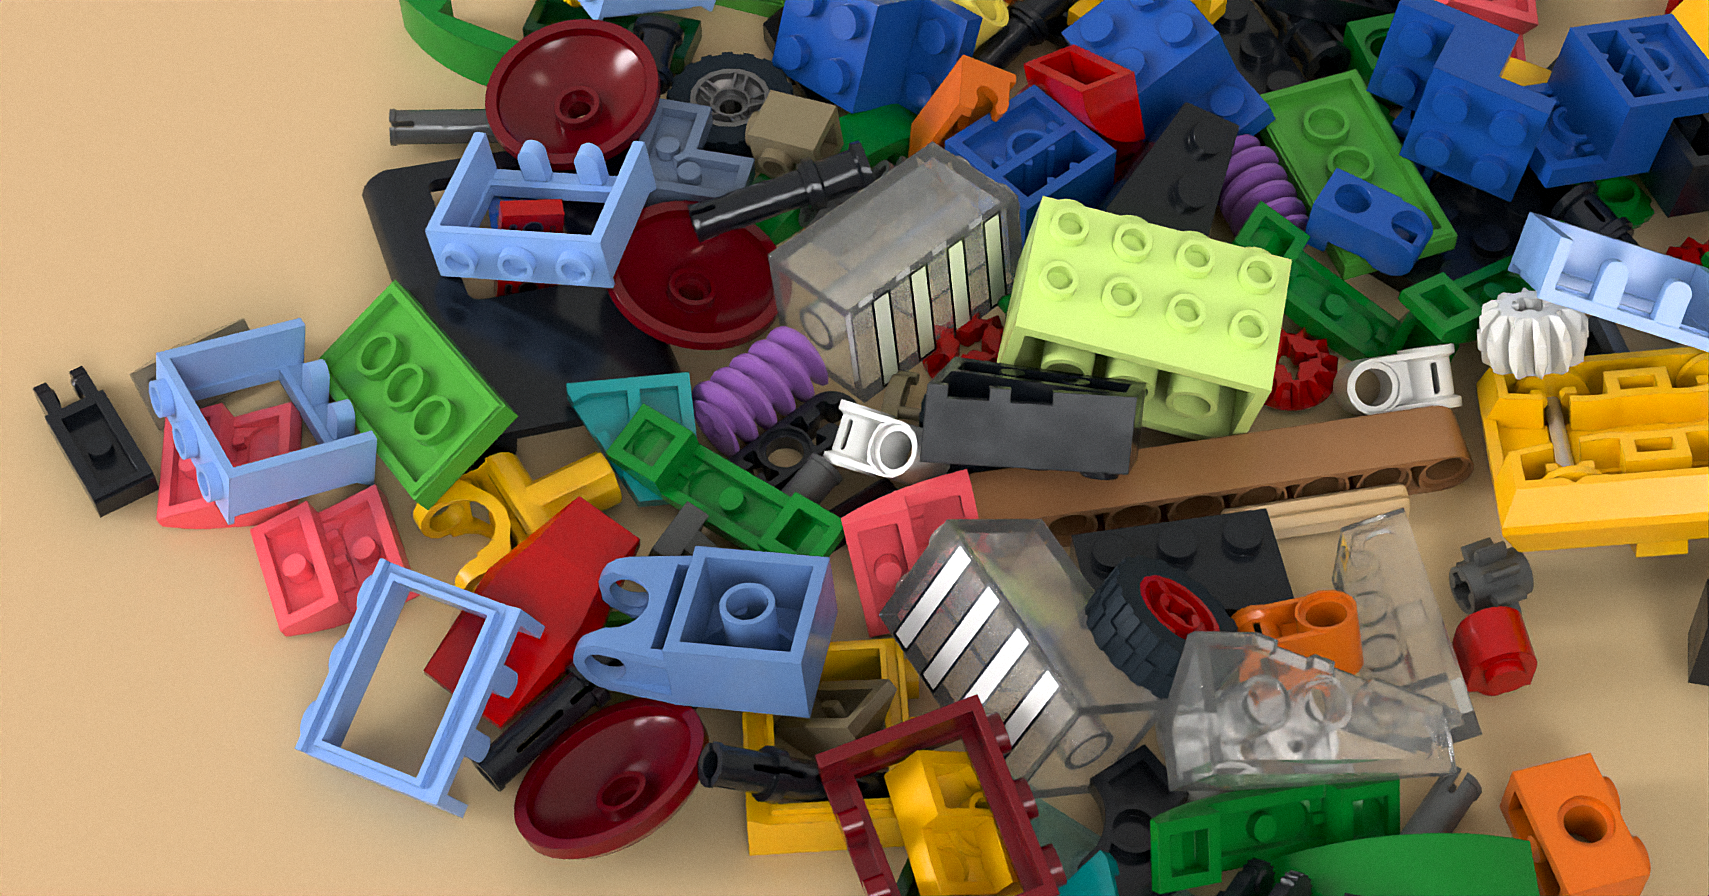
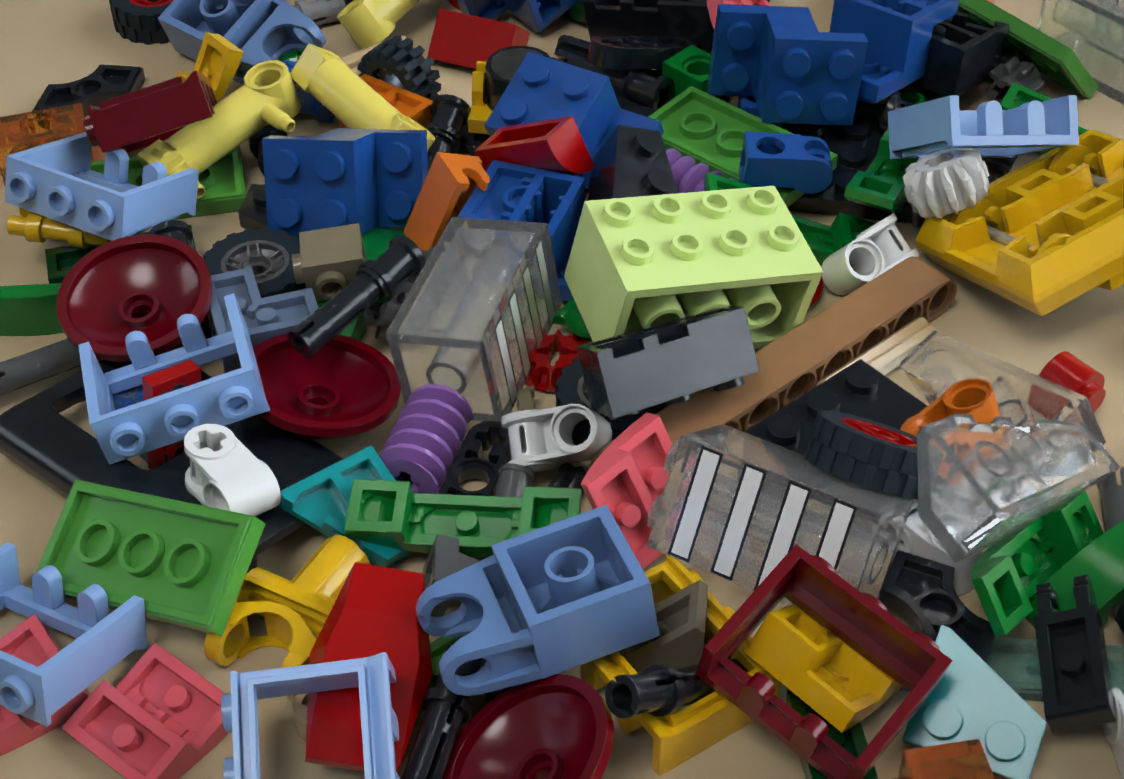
camera: 30 degrees left, 10 degrees down
(528, 342) = (227, 473): none -> white piece
(1490, 577) = (1028, 344): dark grey gear -> none

